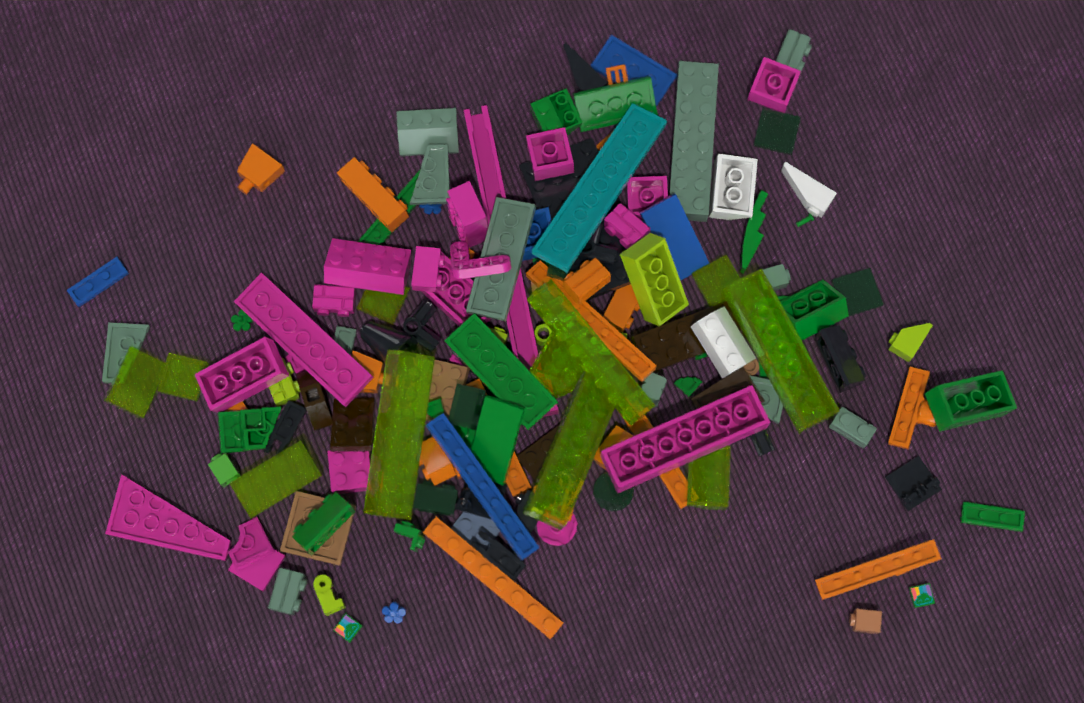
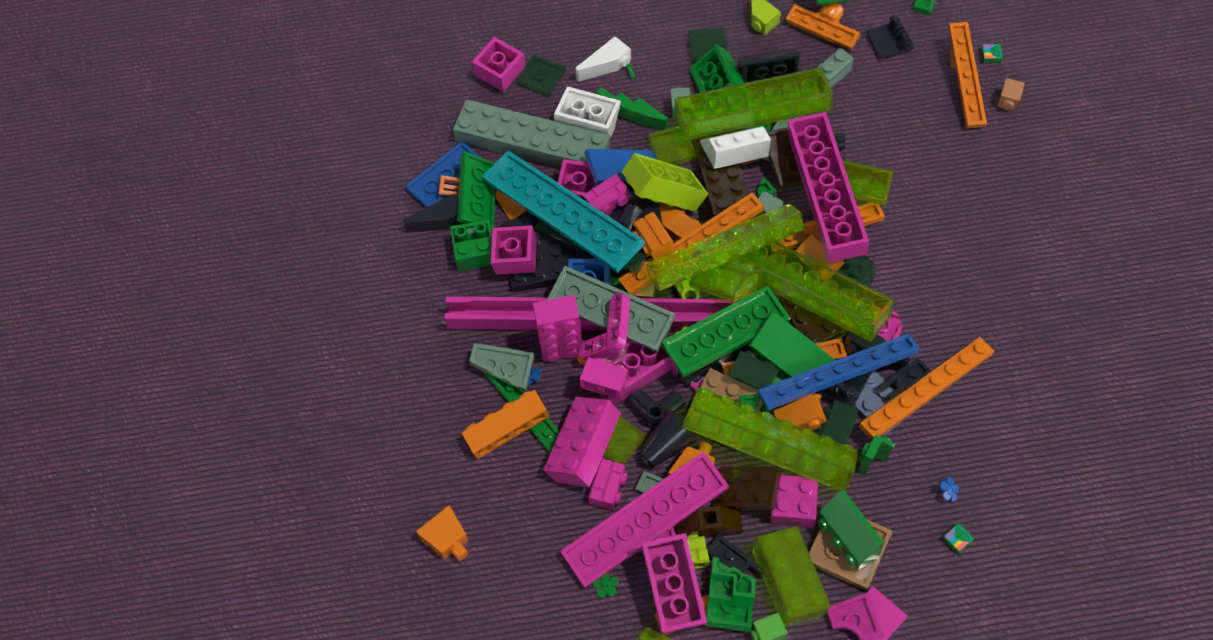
camera: 75 degrees left, 15 degrees down
(287, 591) = (913, 589): sand green brick -> none
(324, 589) = (922, 551): lime leg -> none
(425, 128) = (450, 365): sand green slope -> none
(794, 49) = (468, 44): sand green brick -> none

